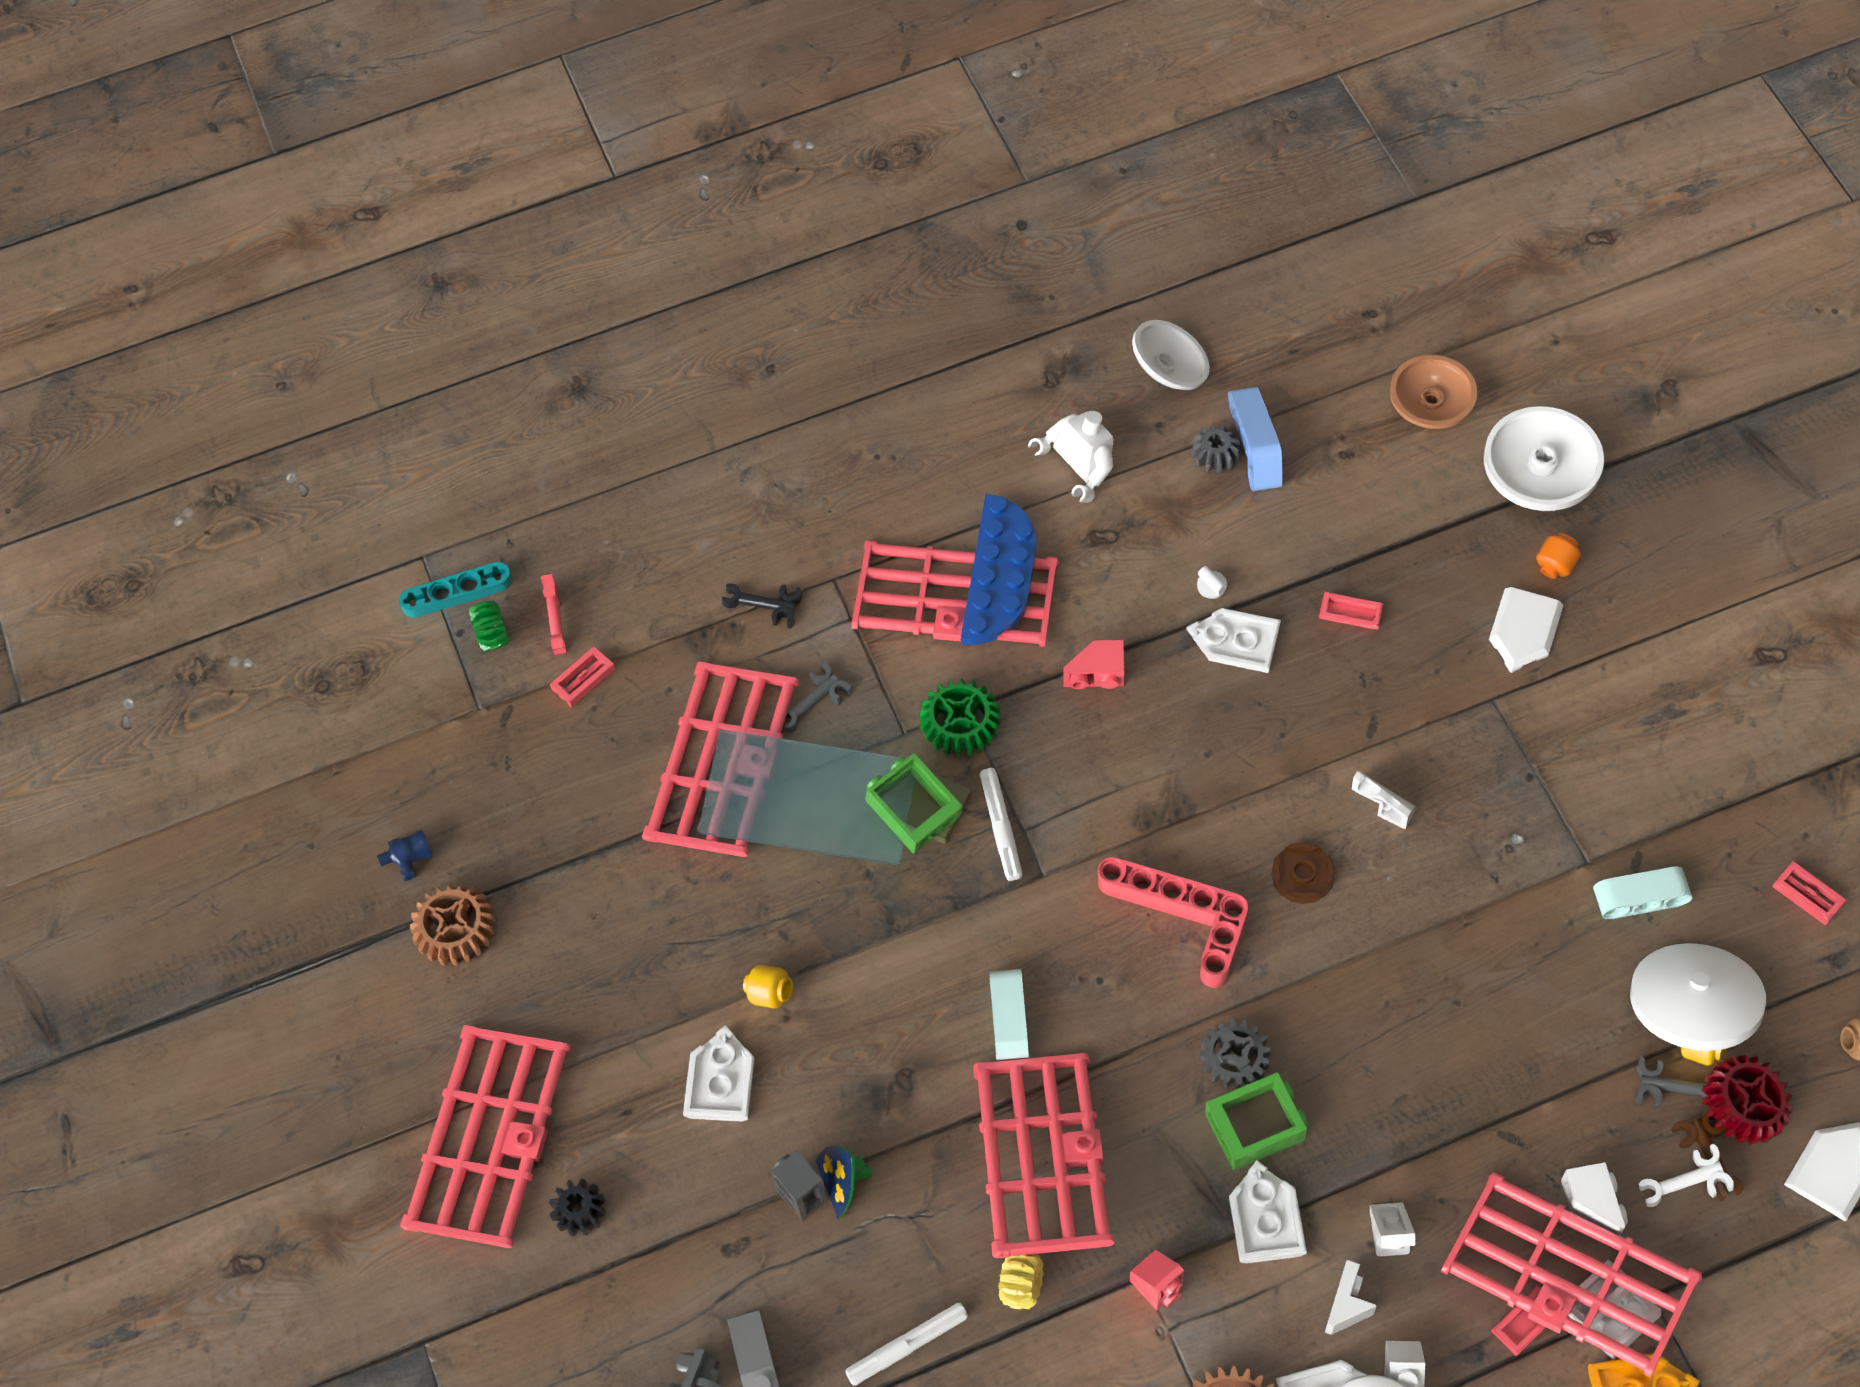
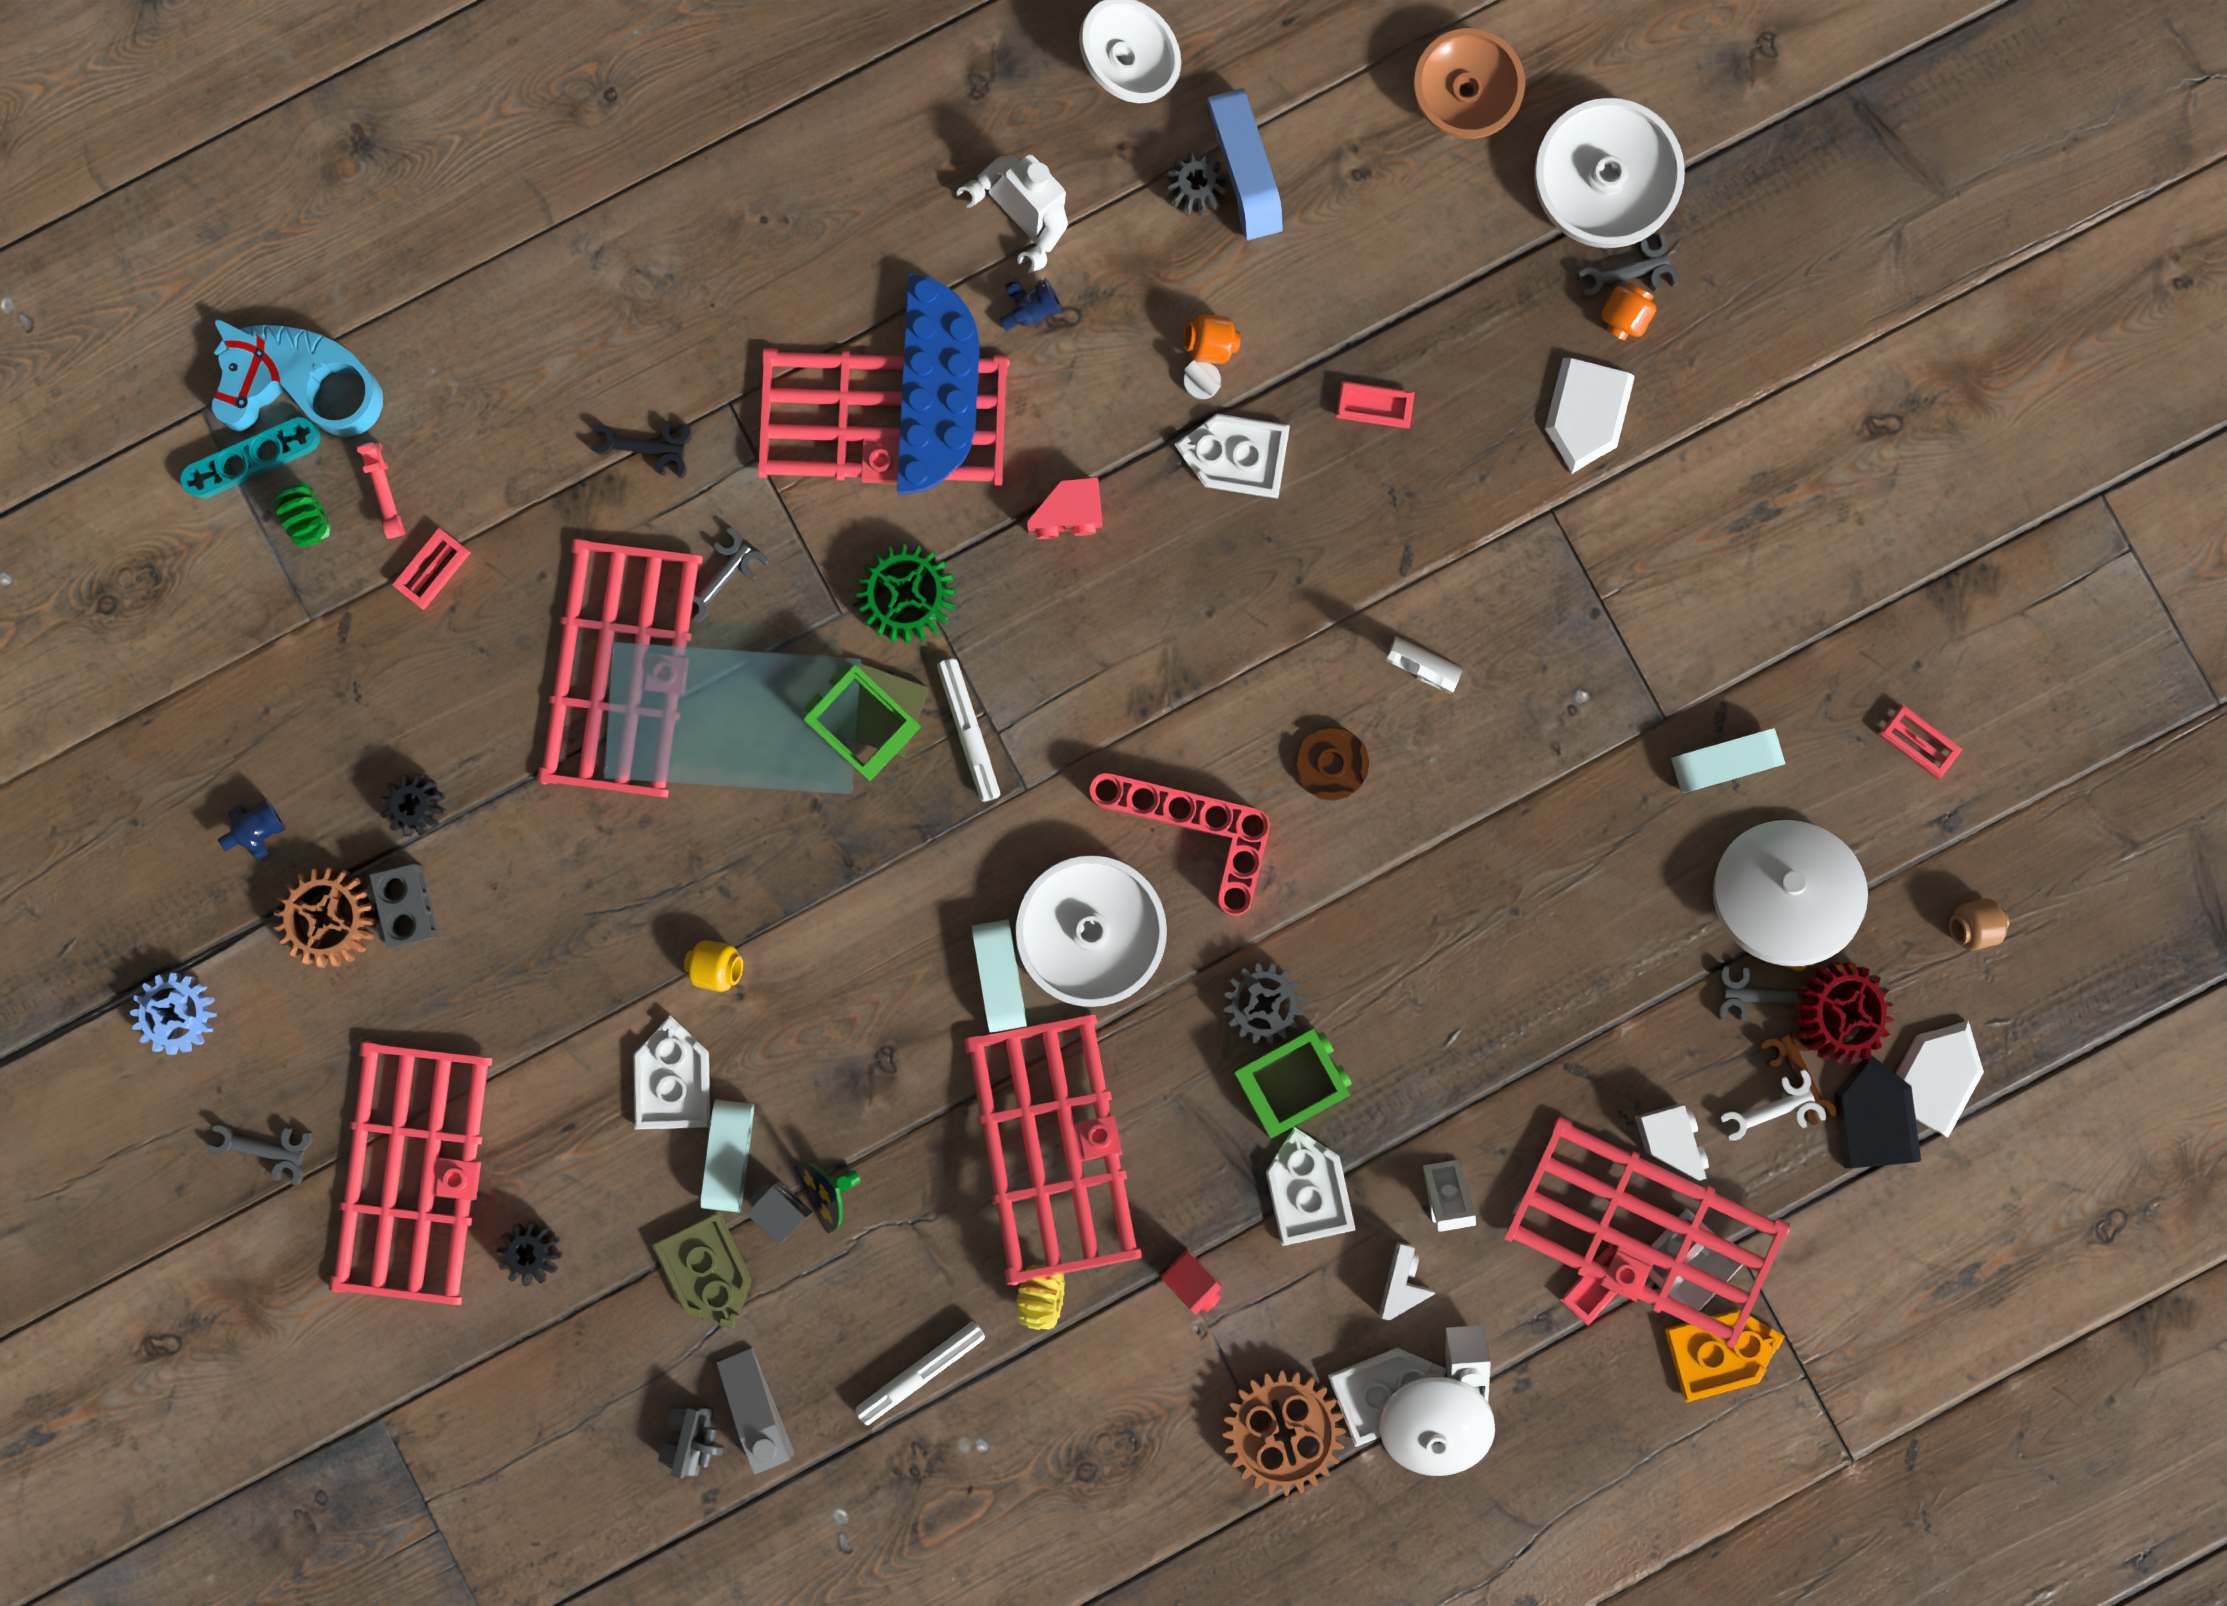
camera: 10 degrees left, 25 degrees up
(313, 1001) = (165, 1026): none -> light blue gear
(384, 1114) = (289, 1154): none -> dark grey bar
(501, 525) = (274, 359): none -> medium azure animal
(524, 919) = (414, 903): none -> dark grey brick
(534, 855) = (401, 798): none -> black gear
(728, 1238) = (705, 1270): none -> olive tile
(759, 1142) = (727, 1155): none -> light aqua beam
(1079, 524) = (1032, 306): none -> dark blue piece
(1090, 981) = (1091, 931): none -> white dish
(1221, 553) = (1211, 339): none -> orange head
(1578, 526) = (1654, 262): none -> dark grey bar
(1780, 1194) = (1876, 1117): none -> black tile

